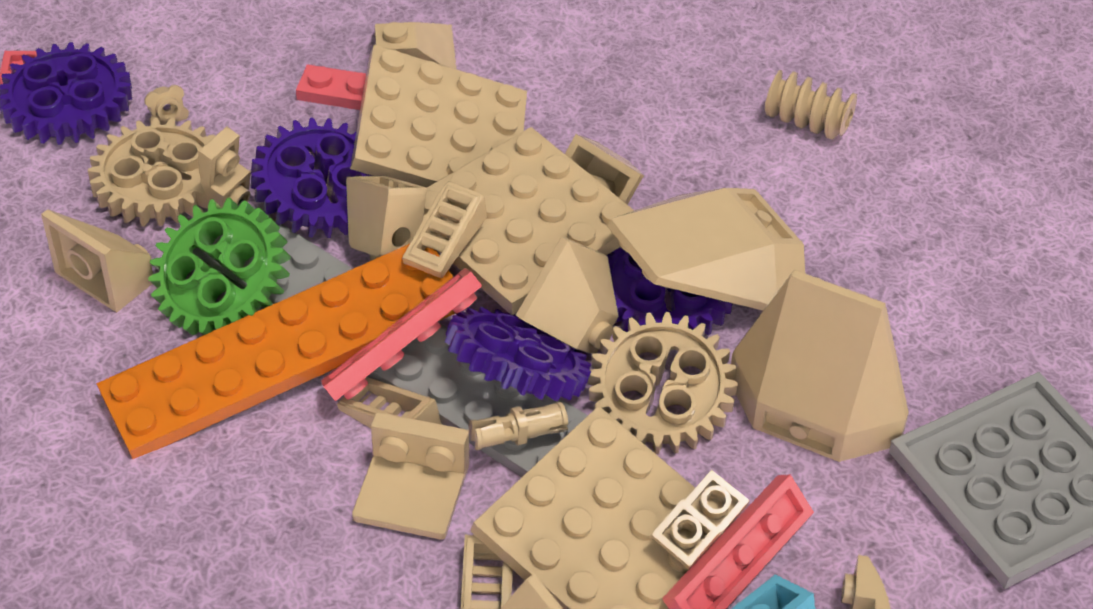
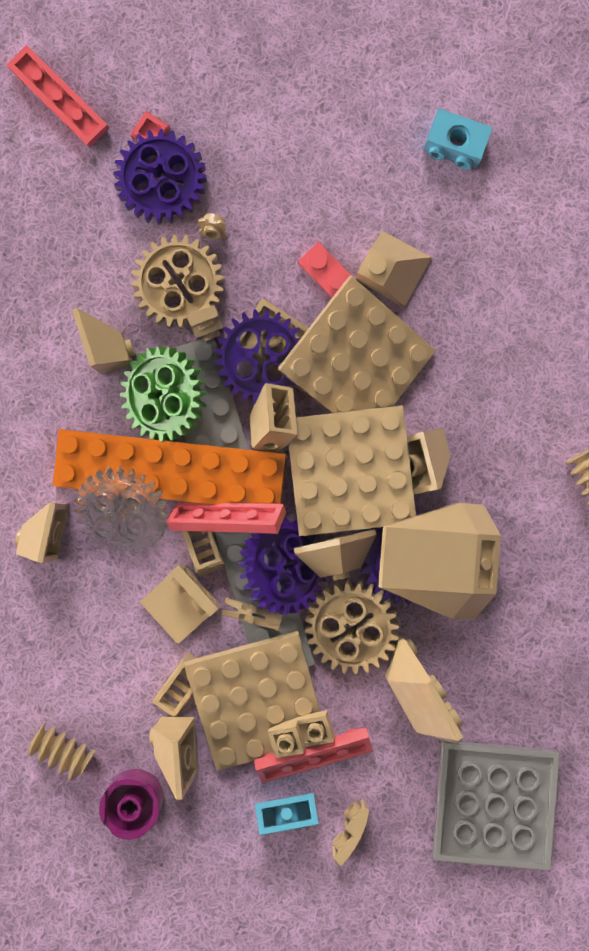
camera: 30 degrees right, 40 degrees up
(151, 496) = (43, 533): none -> tan slope
(213, 428) = (97, 510): none -> clear gear
(454, 204) = (315, 465): tan slope -> none

